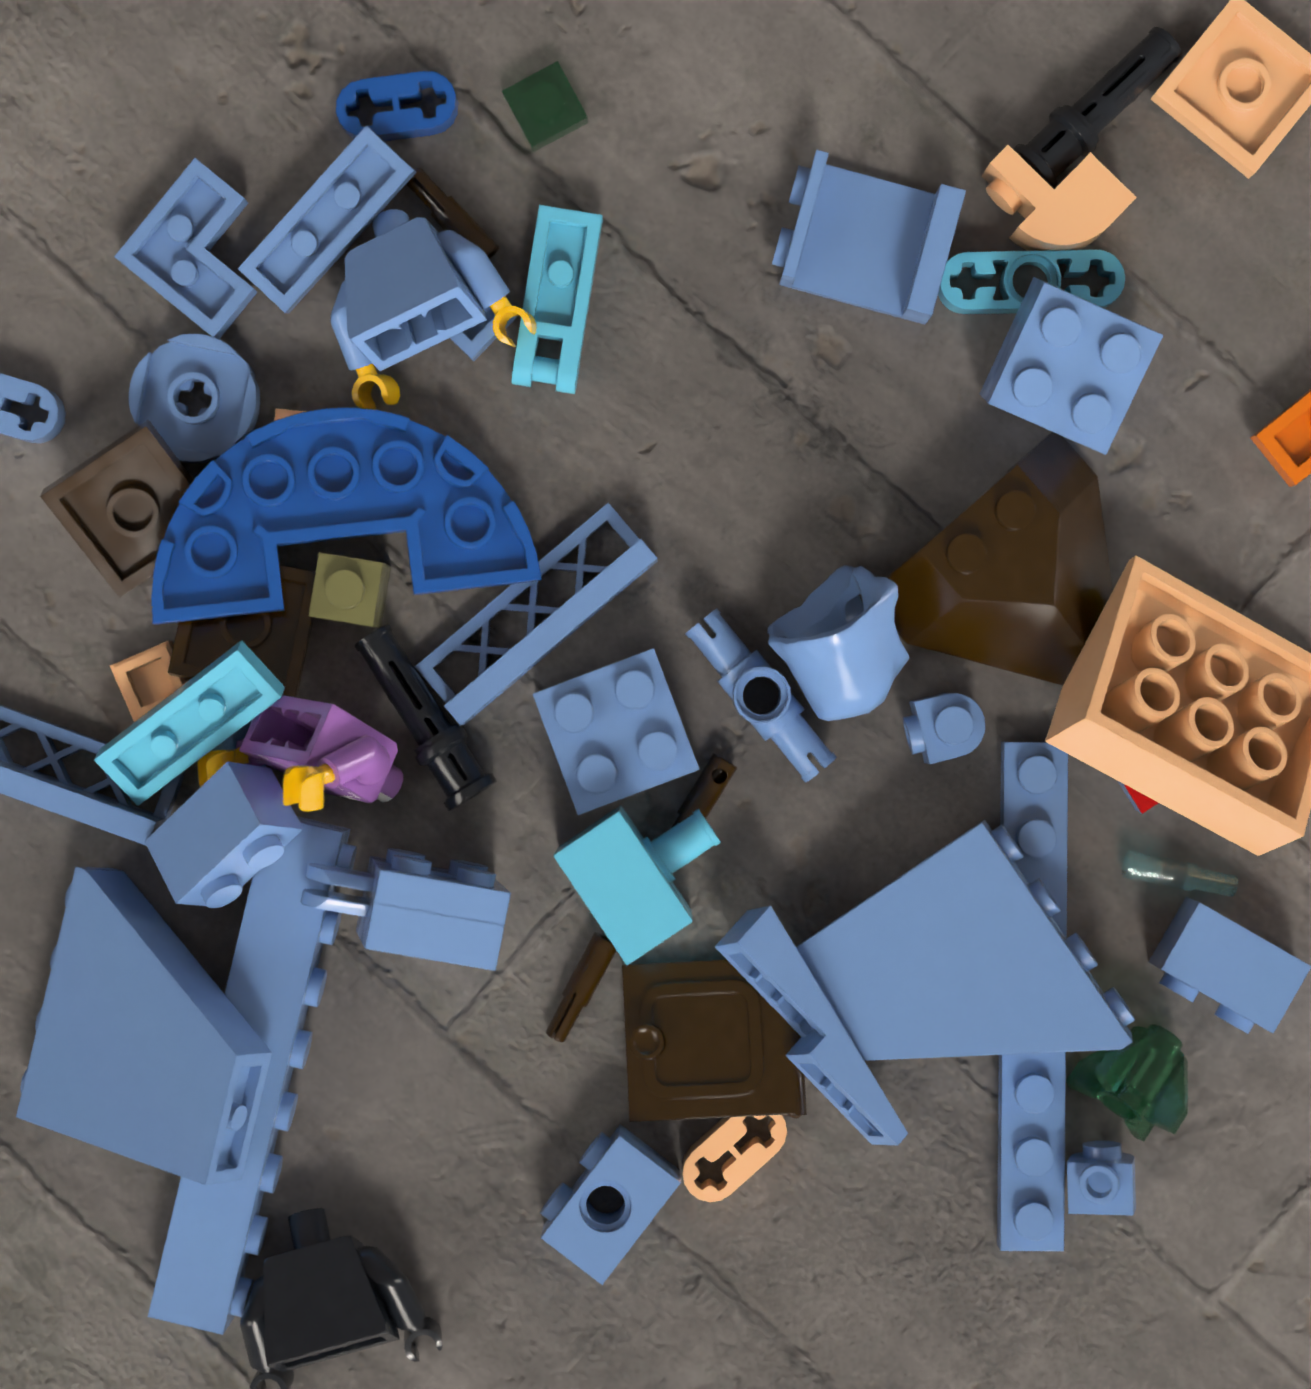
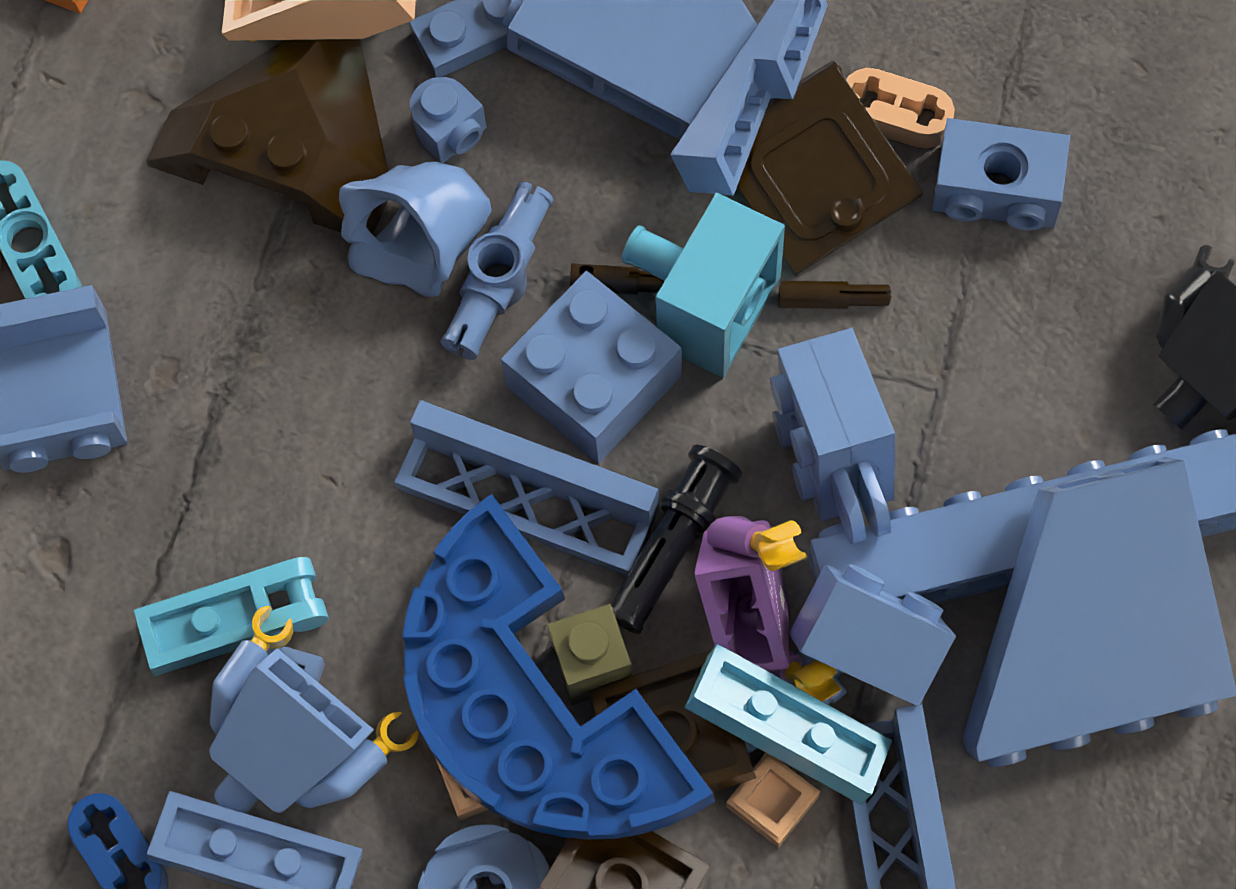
camera: 115 degrees left, 20 degrees down
(450, 213) = (196, 748): dark brown piece -> none
(545, 106) = (56, 720): clear green plate -> none
(1070, 366) = (83, 160): medium blue brick -> none

